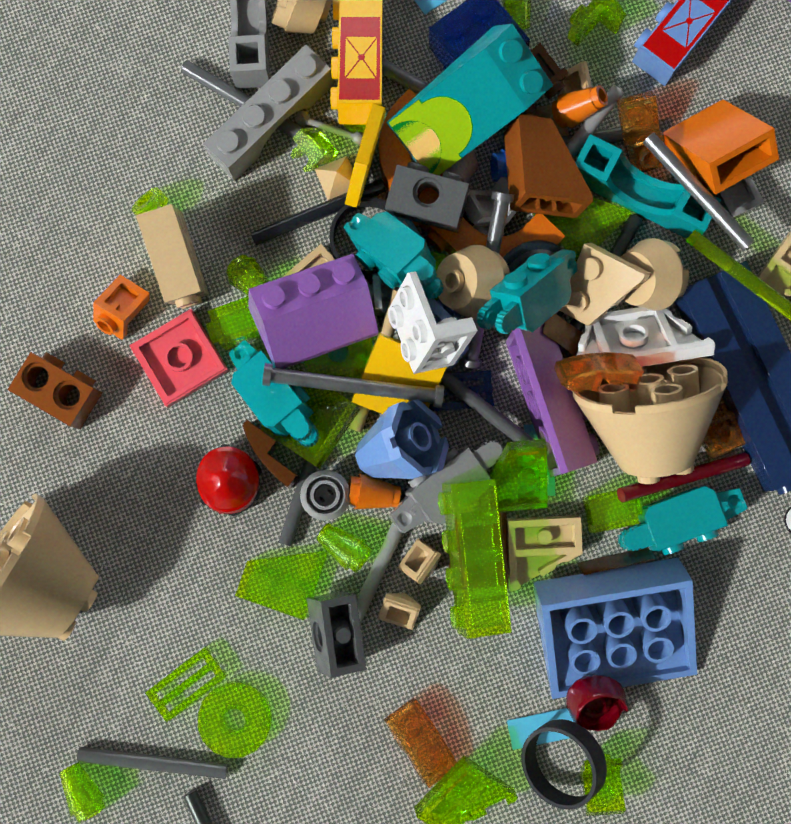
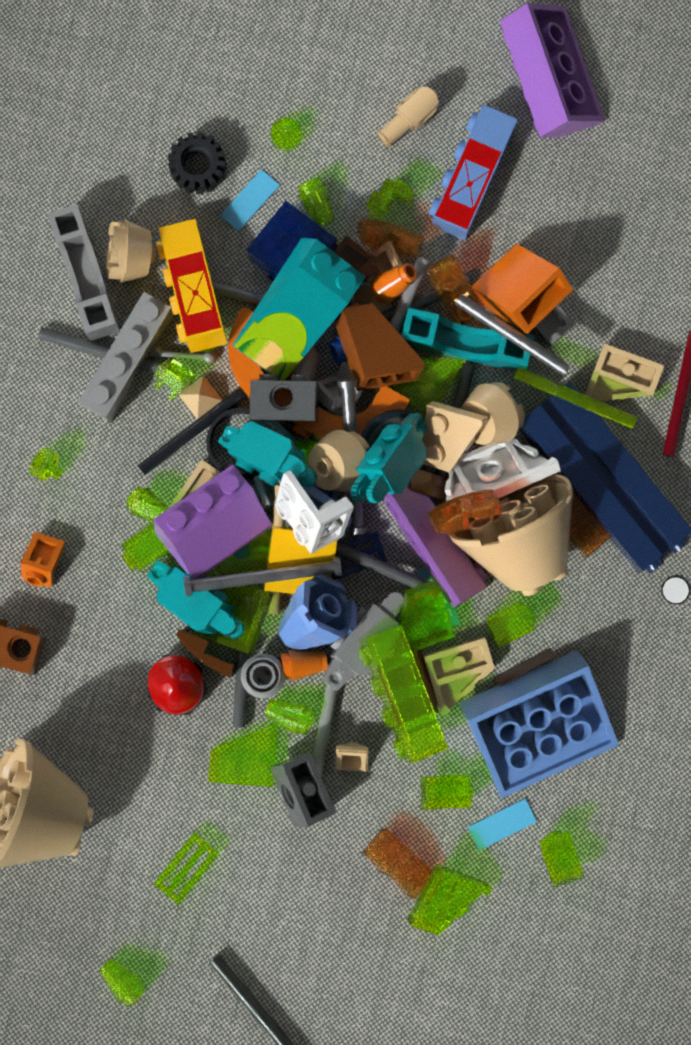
camera: 10 degrees left, 0 degrees up
(152, 762) = (175, 942): dark grey bar -> none
(173, 256) = (80, 507): tan brick -> none
(179, 358) = (105, 590): coral tile -> none
(230, 741) = (216, 890): clear neon green tile -> none
(365, 155) = (221, 367): yellow tile -> none
(420, 561) = (358, 711): tan slope -> none
(494, 676) = (446, 791): none -> clear neon green bracket
(538, 781) = (500, 864): black tyre -> none
(573, 48) = (379, 232): none -> clear orange slope
(596, 702) = (537, 791): dark red hair -> none
(682, 517) = (571, 615): teal hinge -> none
(700, 472) = (574, 574): dark red bar -> none

